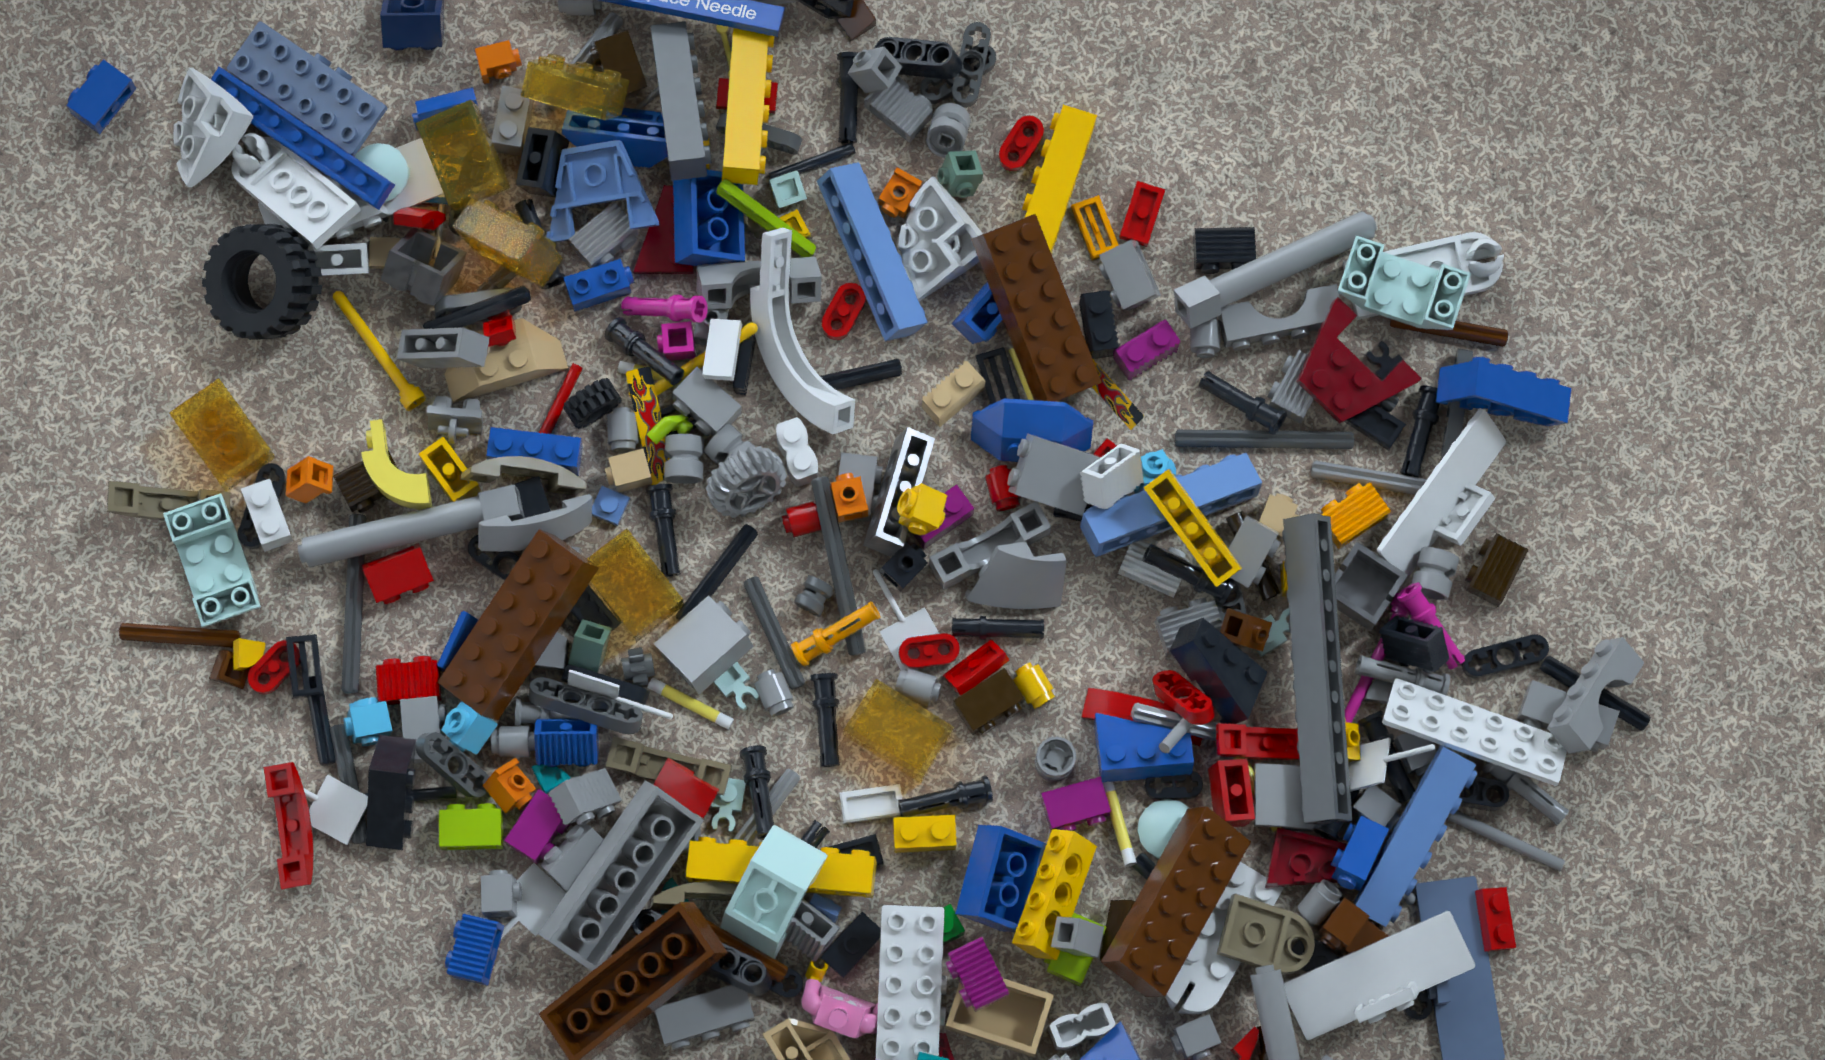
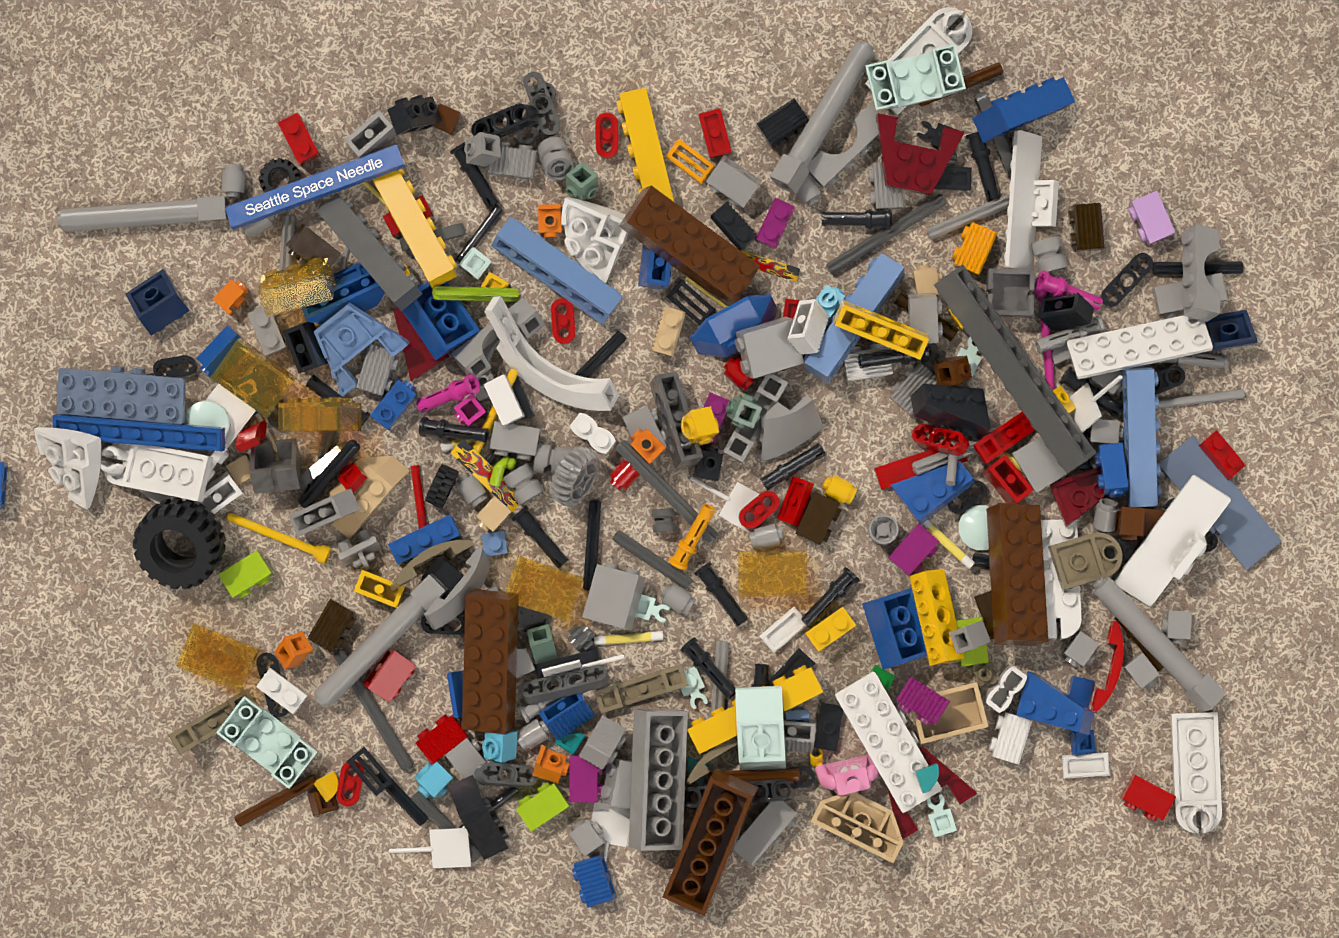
camera: 20 degrees left, 10 degrees up
(293, 823) = (429, 875): red slope -> none
(313, 367) = (246, 574): none -> lime brick
(391, 93) = (173, 361): none -> black beam
(400, 487) = (357, 620): light yellow arch -> none
(686, 788) = (661, 696): red slope -> none
(989, 535) = (748, 416): none -> sand green brick
(1075, 992) = (988, 669): none -> dark tan plate
(1575, 604) = (1151, 218): none -> lavender piece
(1588, 785) = (1231, 330): none -> dark blue slope

